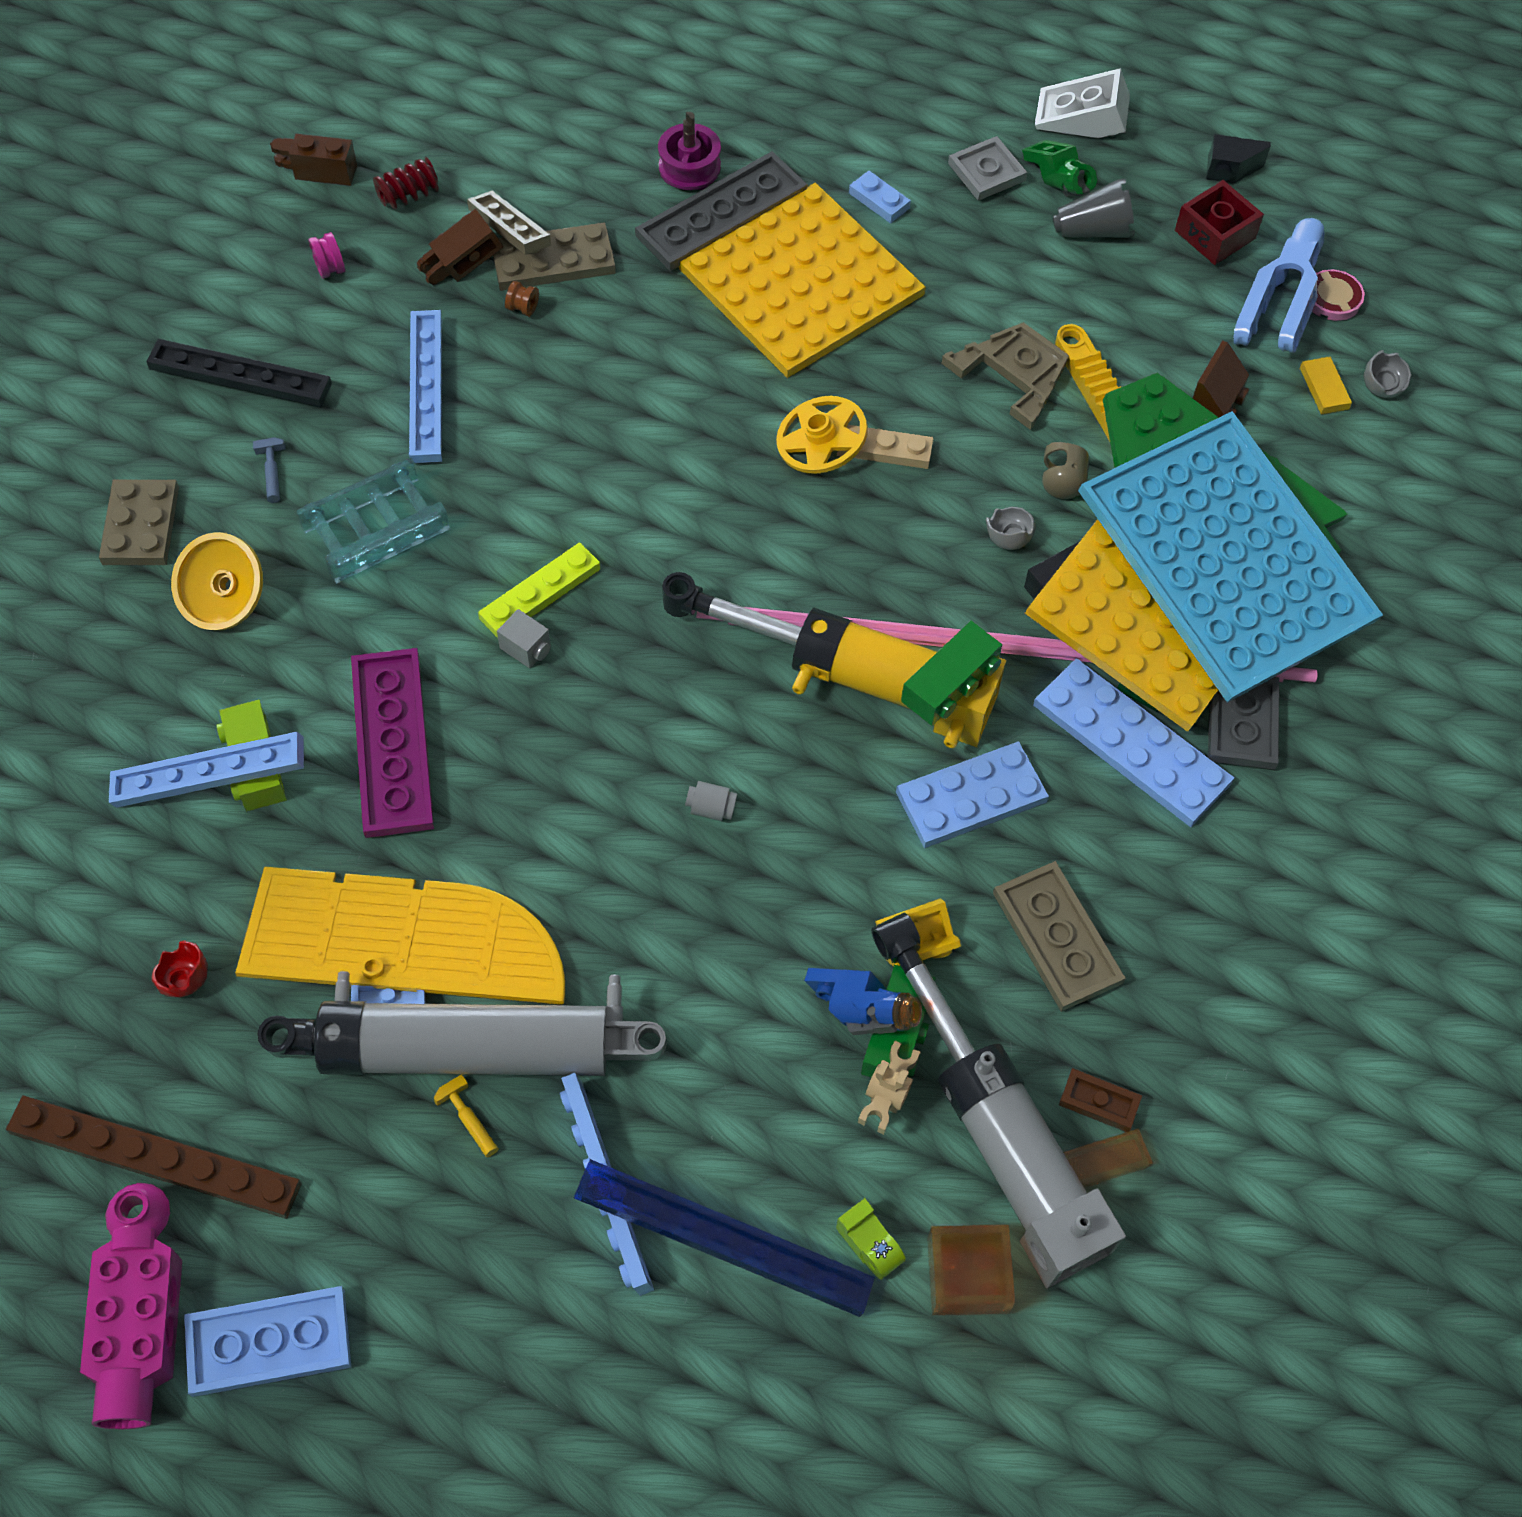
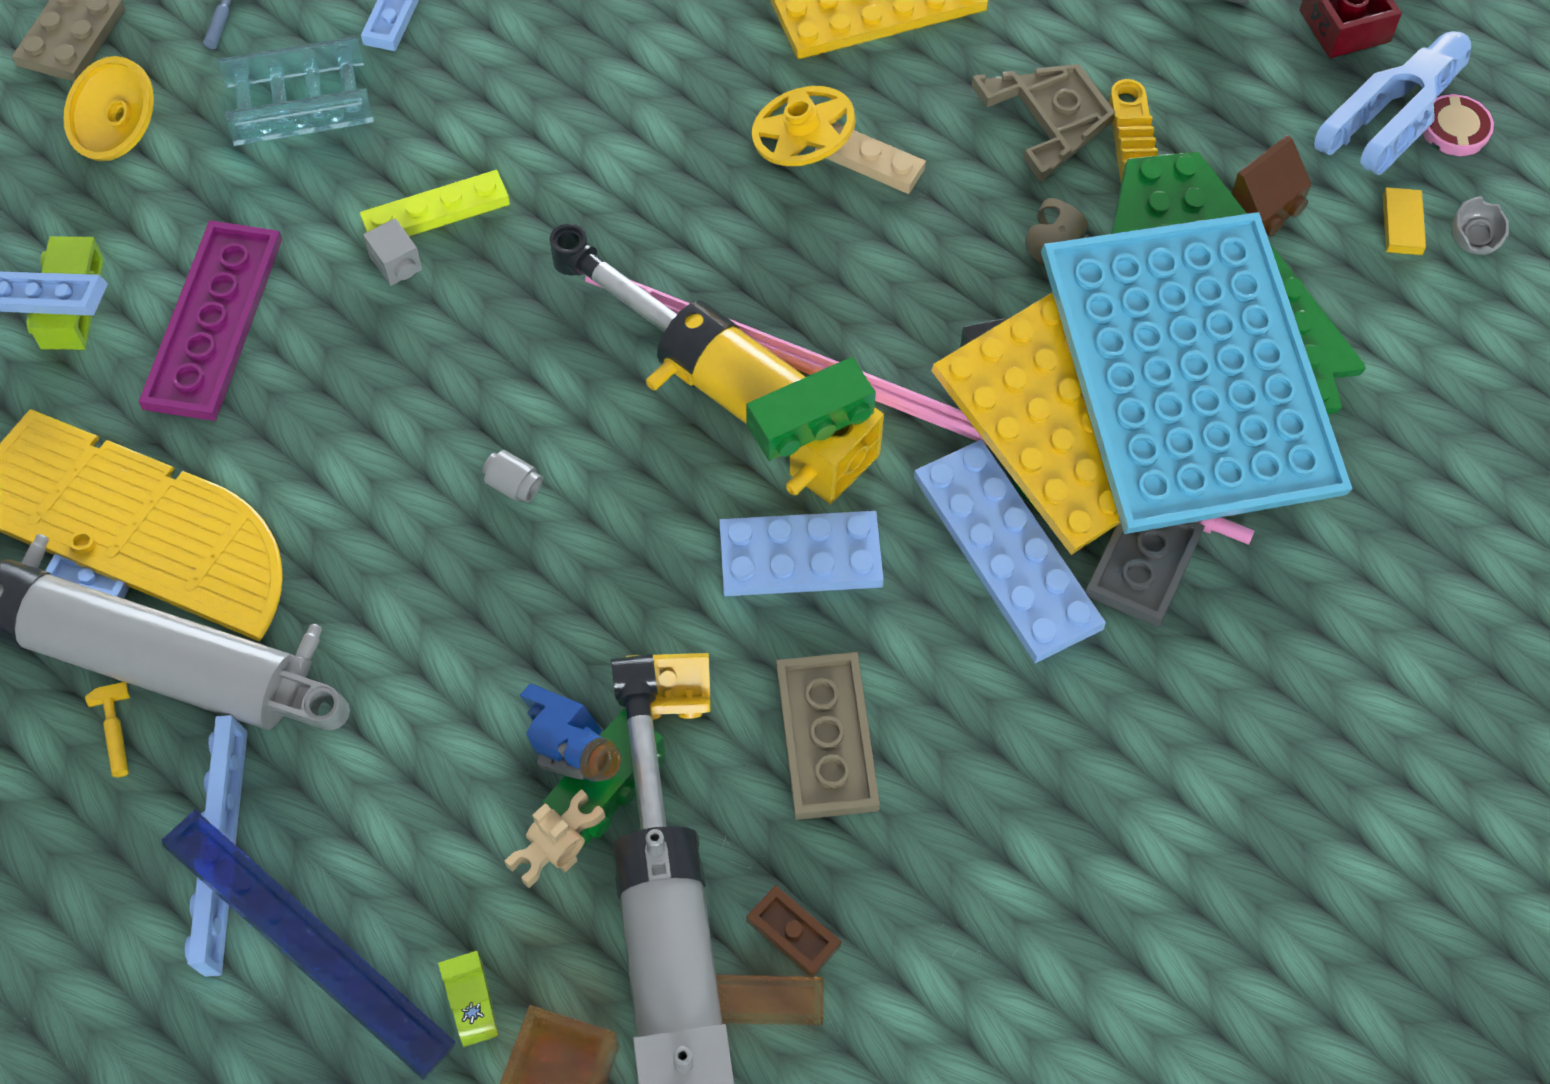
camera: 20 degrees right, 0 degrees up
(1011, 527) = (967, 279): light grey hair -> none

